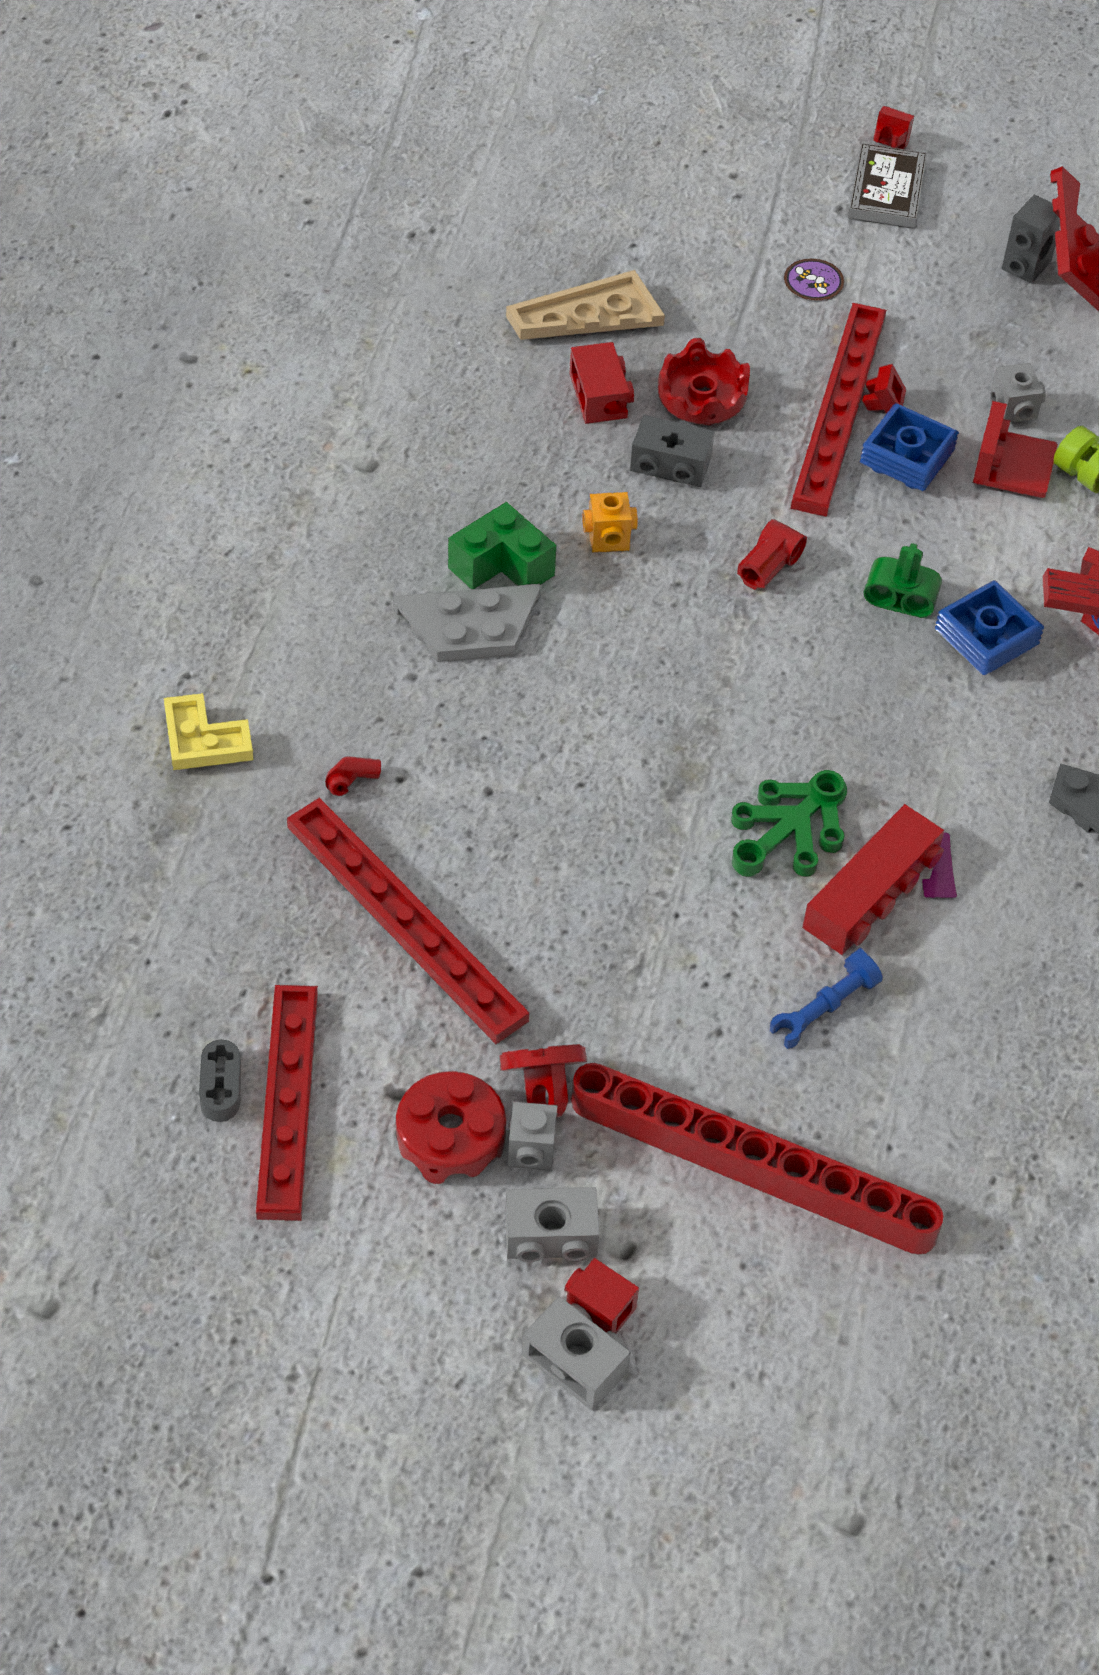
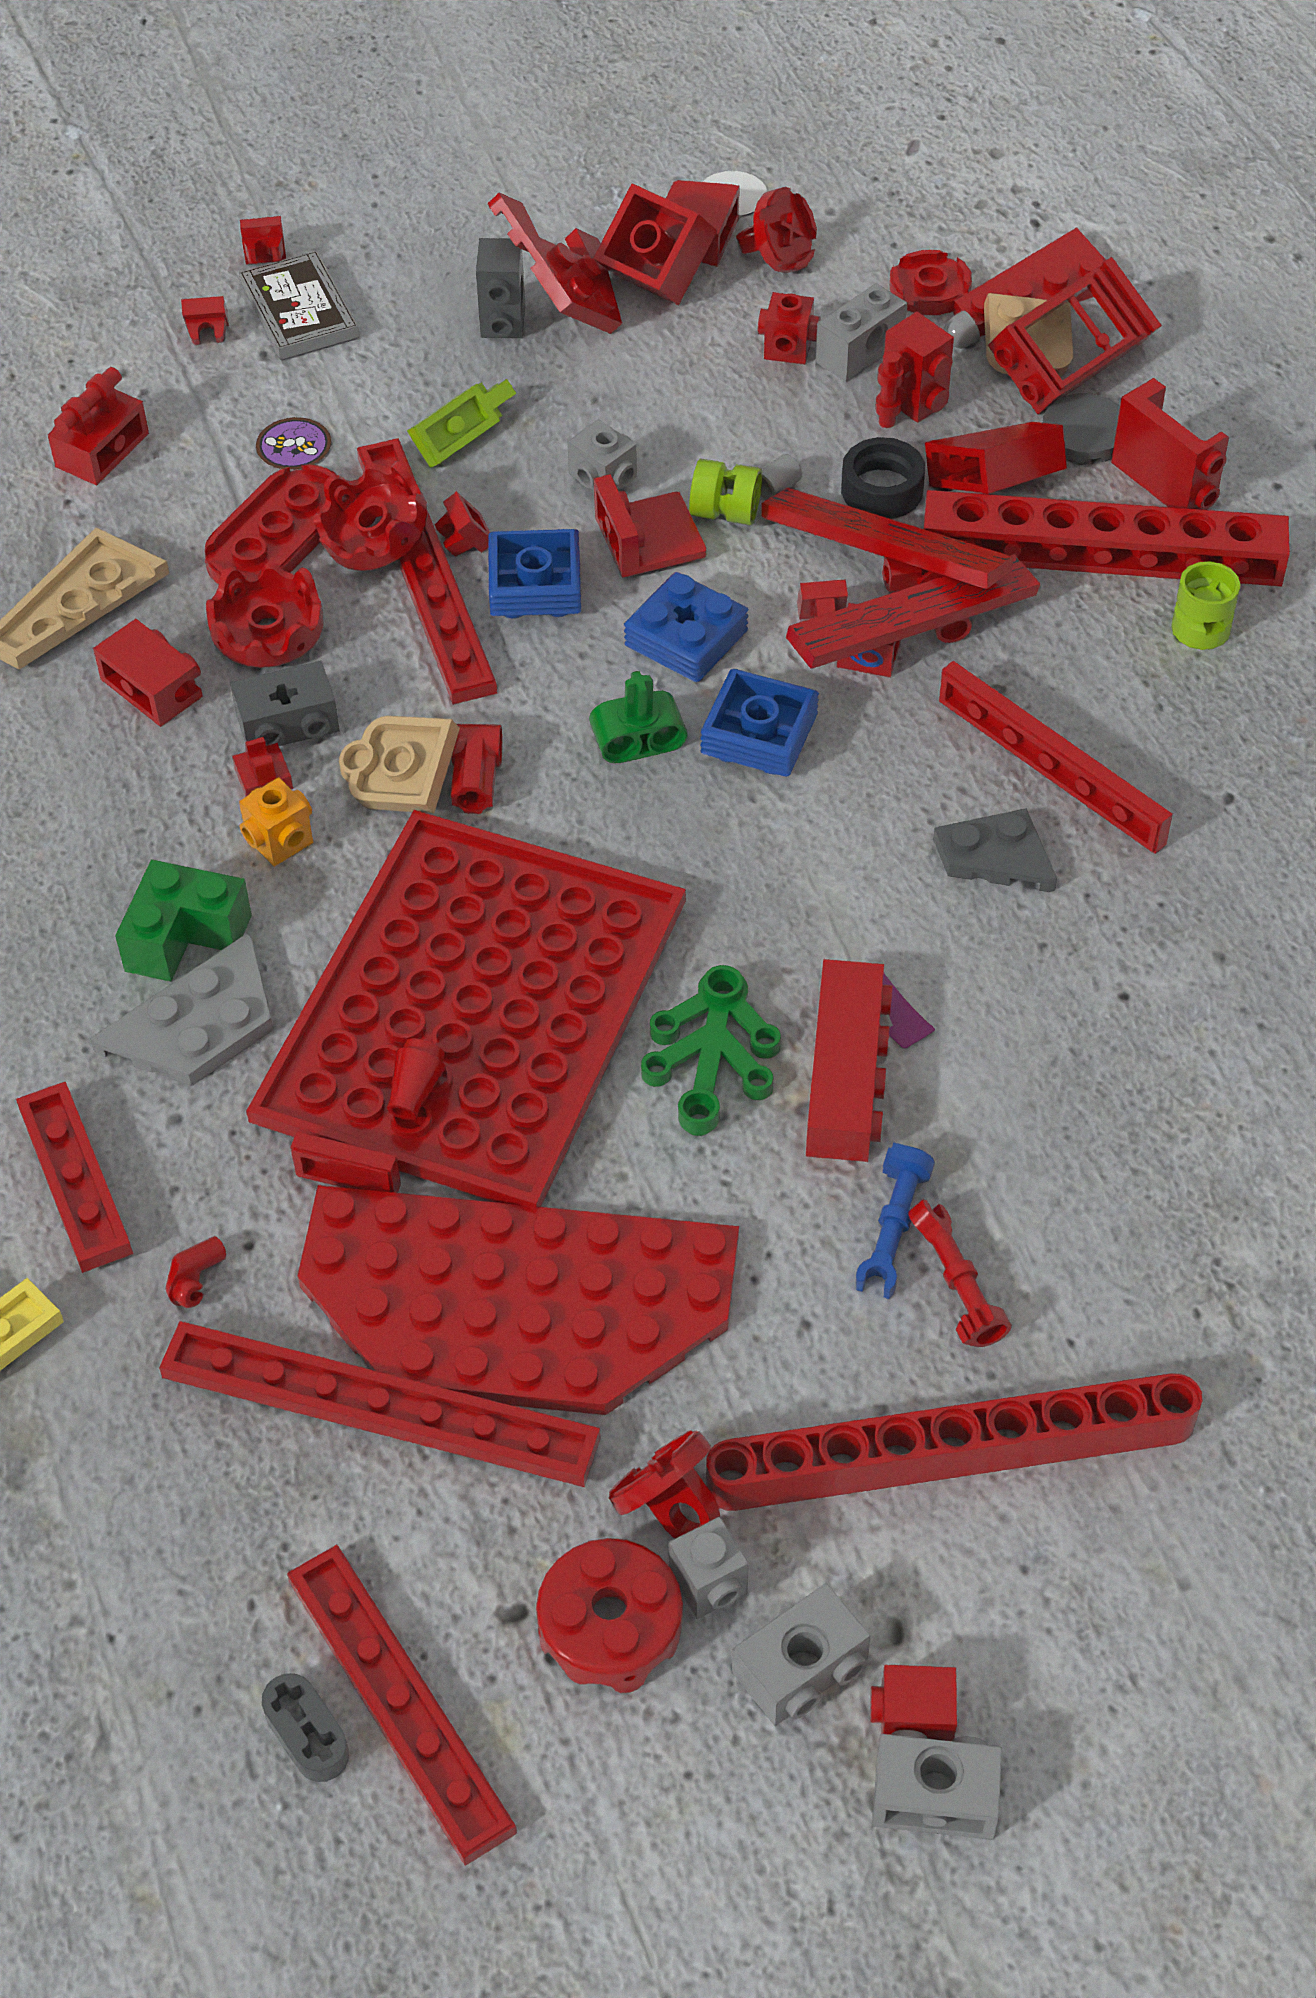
camera: 30 degrees left, 0 degrees up
(321, 675) = (74, 1177): none -> red plate
(492, 762) = (344, 1164): none -> red tile
(545, 906) = (516, 1296): none -> red plate
(573, 728) = (414, 1076): none -> red cone
(630, 480) = (260, 765): none -> red tile
(650, 710) = (504, 964): none -> red plate
(683, 203) = (97, 429): none -> red brick
(719, 526) = (400, 763): none -> tan plate
(763, 327) = (270, 524): none -> red tile
(816, 160) = (205, 313): none -> red tile
(822, 353) = (353, 508): none -> red plate
(833, 1097) = (984, 1322): none -> red piece
(937, 318) = (459, 421): none -> lime hinge
(990, 537) = (686, 626): none -> blue brick

